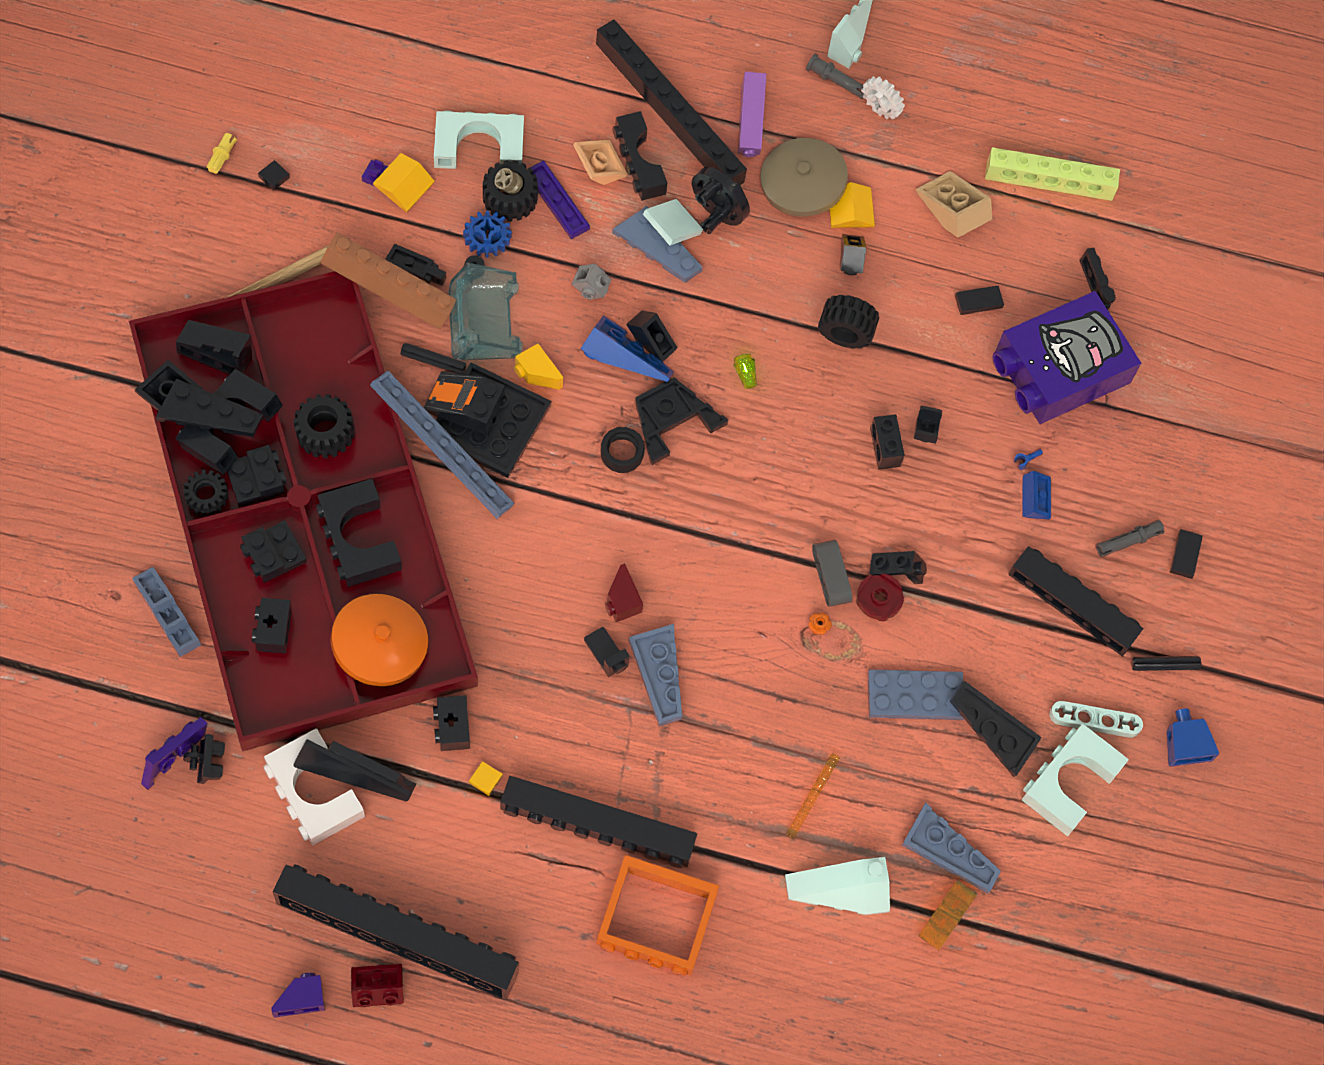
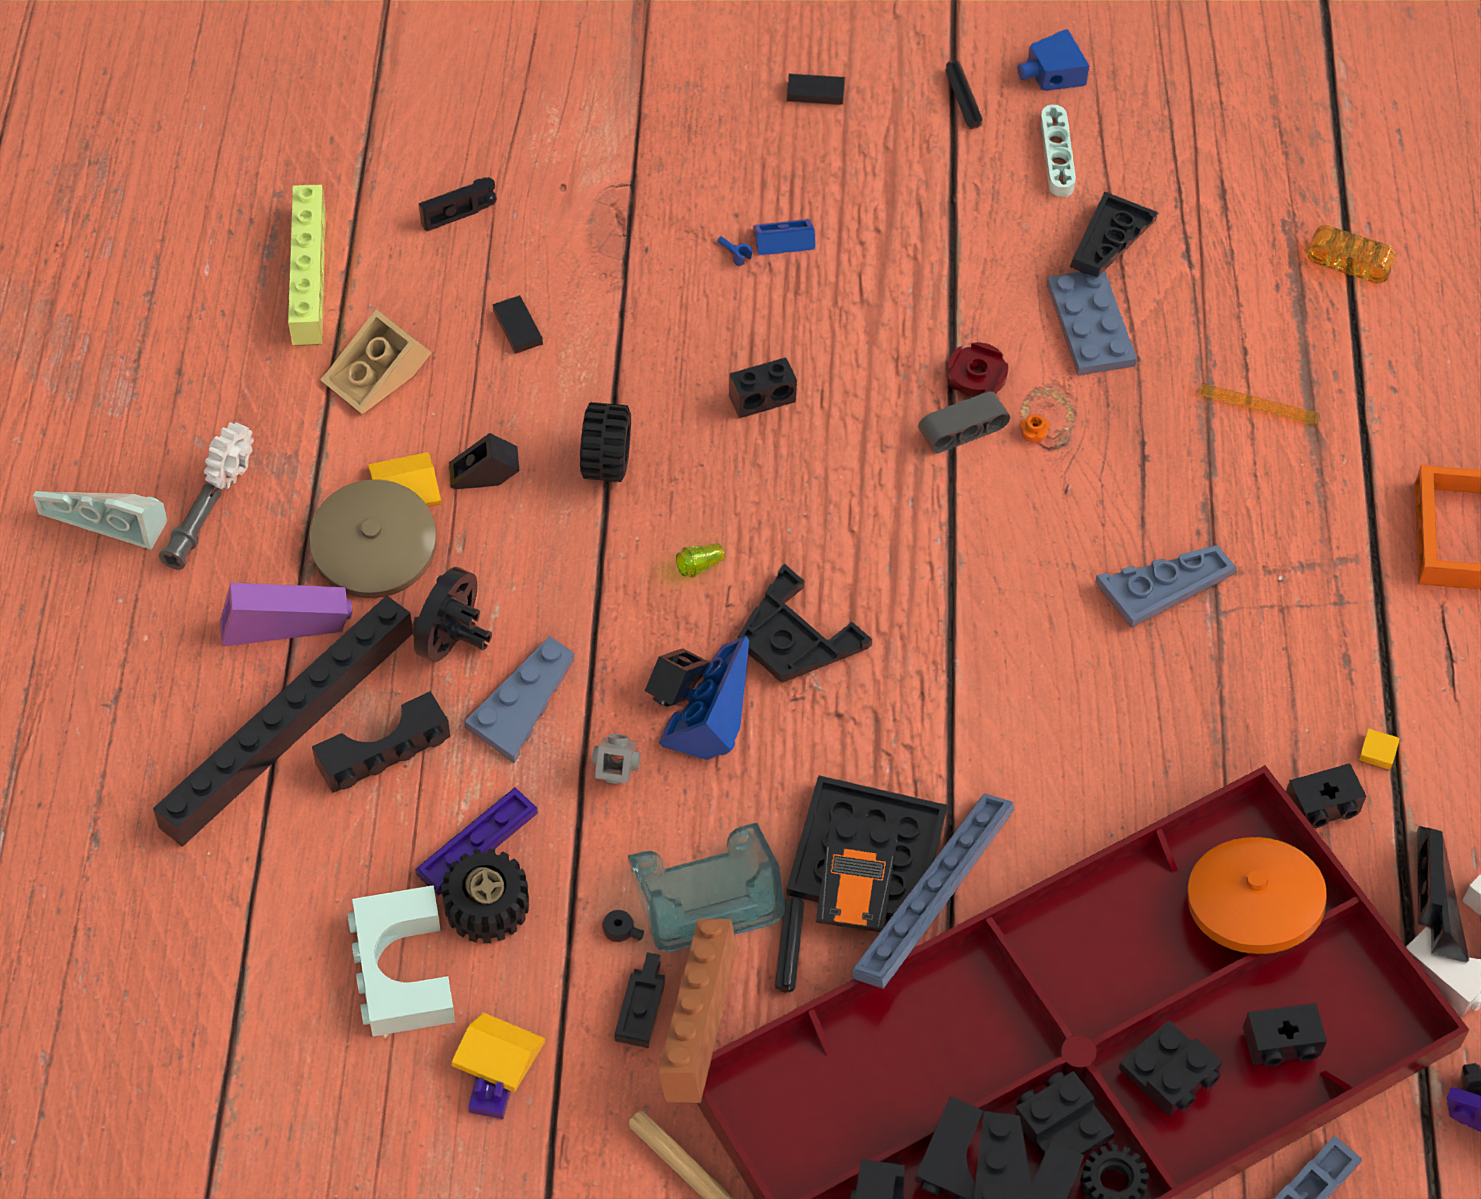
camera: 95 degrees left, 10 degrees down
(322, 410) = (966, 1016): black tyre -> none
(355, 563) = (1086, 996): black arch -> none
(498, 235) = (560, 929): blue gear -> none
(538, 368) = (768, 803): yellow slope -> none
(598, 821) = (1388, 614): black brick -> none
(600, 161) = (399, 792): light nougat slope -> none
(606, 652) = (1164, 641): black bracket -> none
(621, 433) = (863, 659): black tyre -> none
(623, 597) = (1076, 639): dark red slope -> none
(673, 222) = (487, 680): light aqua tile -> none
(849, 886) = (1357, 355): light aqua wedge -> none
(899, 563) = (931, 357): black bracket -> none
(927, 424) = (725, 351): black bracket -> none
(943, 846) = (1273, 263): sand blue wing -> none
(1065, 358) = (591, 214): dark purple brick -> none
(1075, 601) = (916, 180): black brick -> none
(1082, 748) = (1163, 183): light aqua arch -> none
(1138, 535) = (796, 120): dark grey pin -> none

